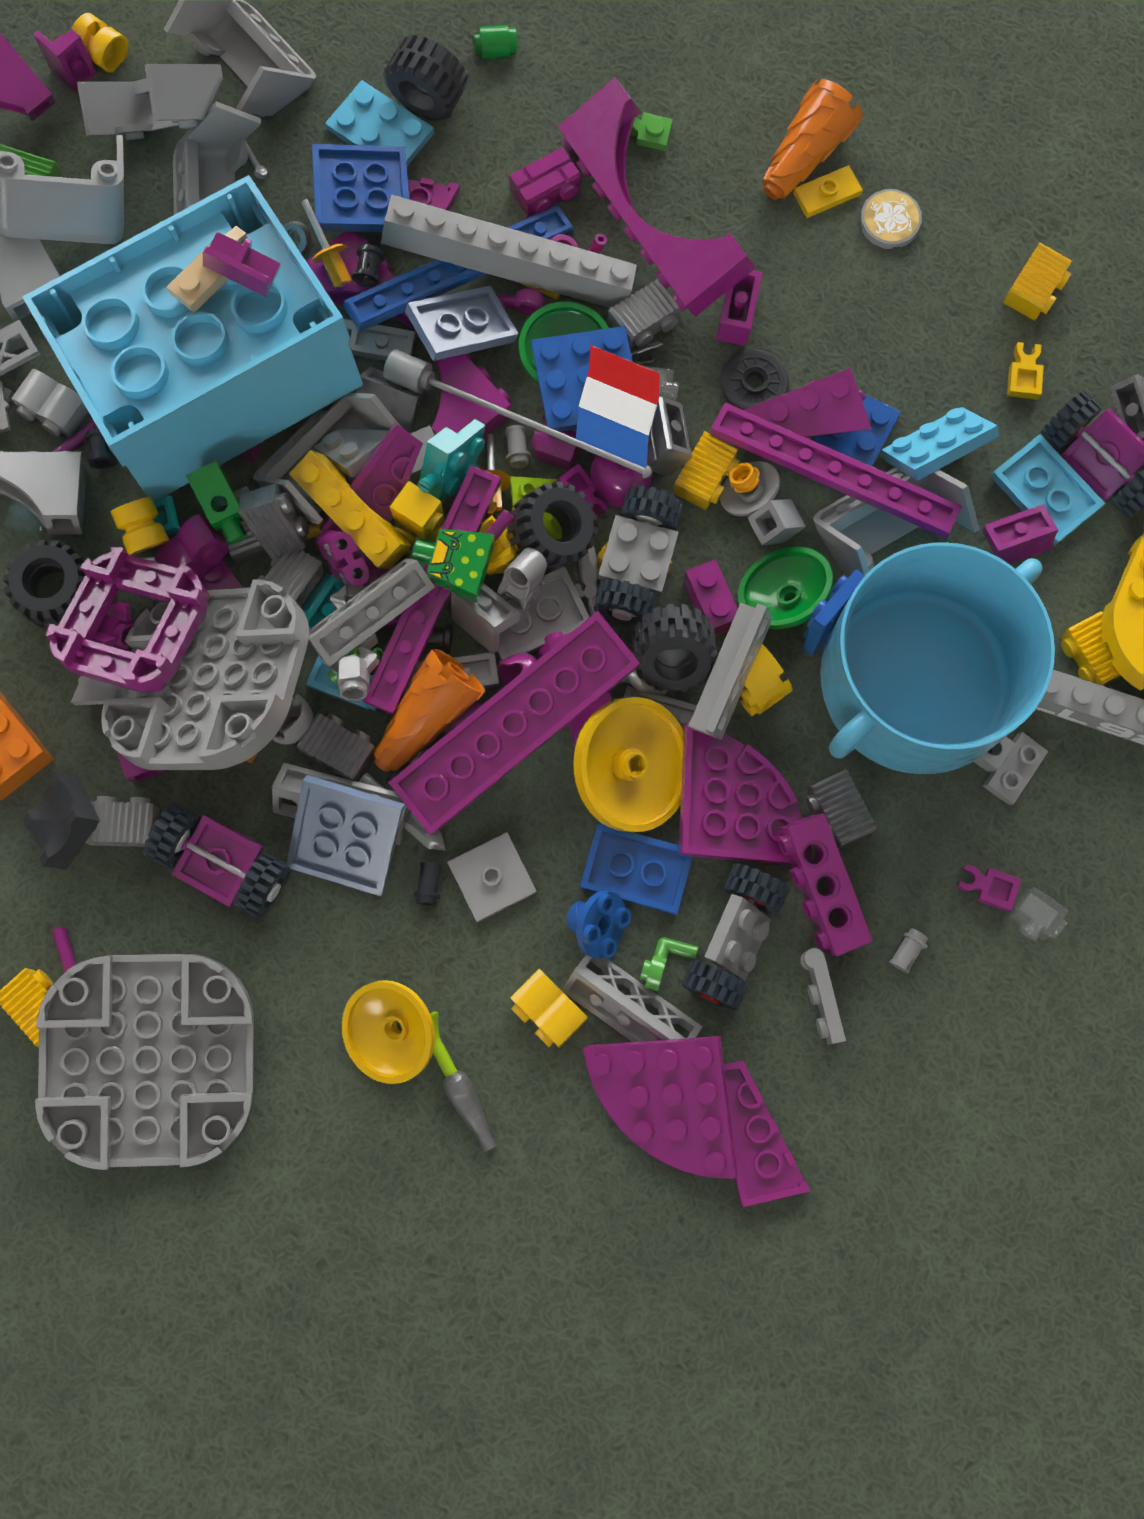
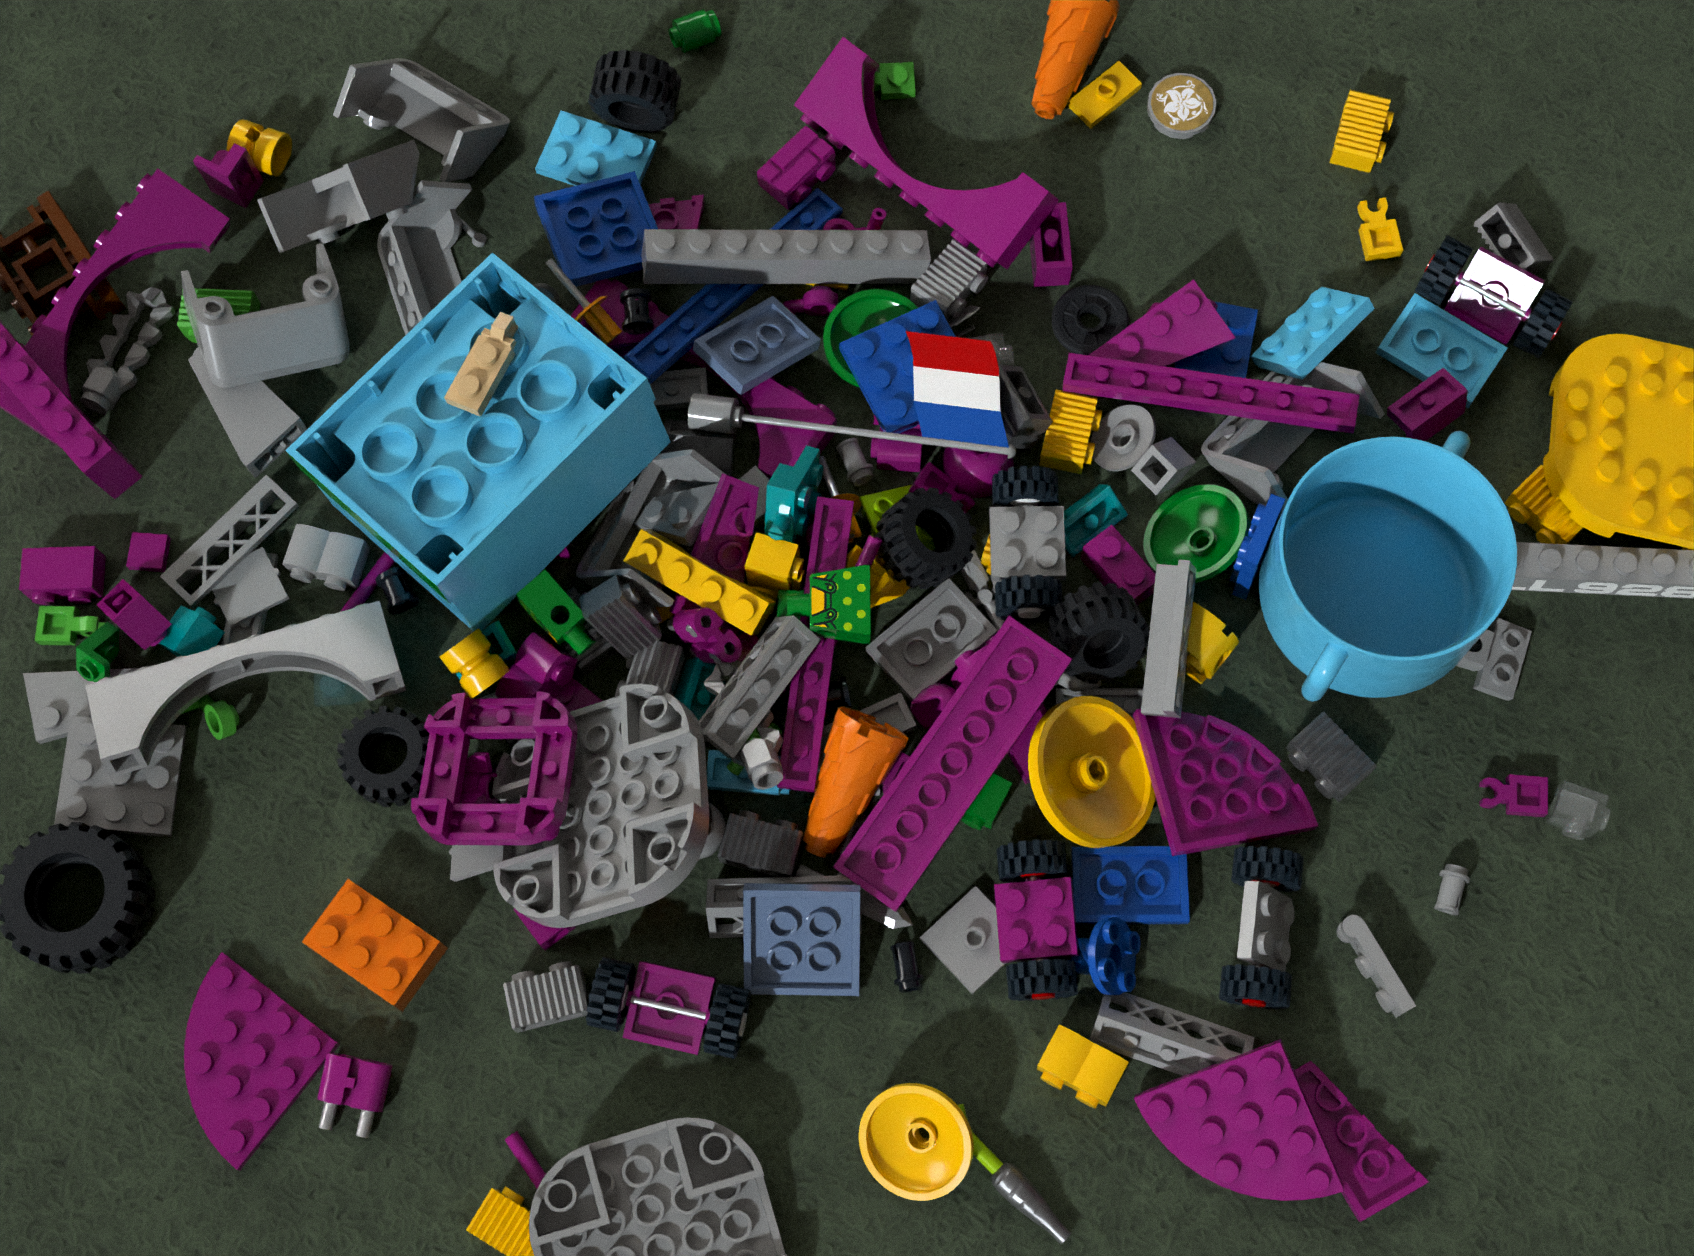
camera: 10 degrees left, 5 degrees down
(62, 820) = (485, 1012): black brick -> none
(241, 263) = (520, 351): magenta panel -> none
(485, 618) = (879, 661): light grey panel -> none
(524, 577) = (912, 602): light grey piece -> none
(538, 765) = (988, 803): none -> green brick
(547, 876) = (1036, 920): none -> plate
(653, 970) = (1183, 990): bright green plate -> none
(701, 548) = (1090, 517): none -> teal slope
(744, 478) = (1114, 428): light orange plate -> none
(851, 927) = (1382, 881): magenta brick -> none

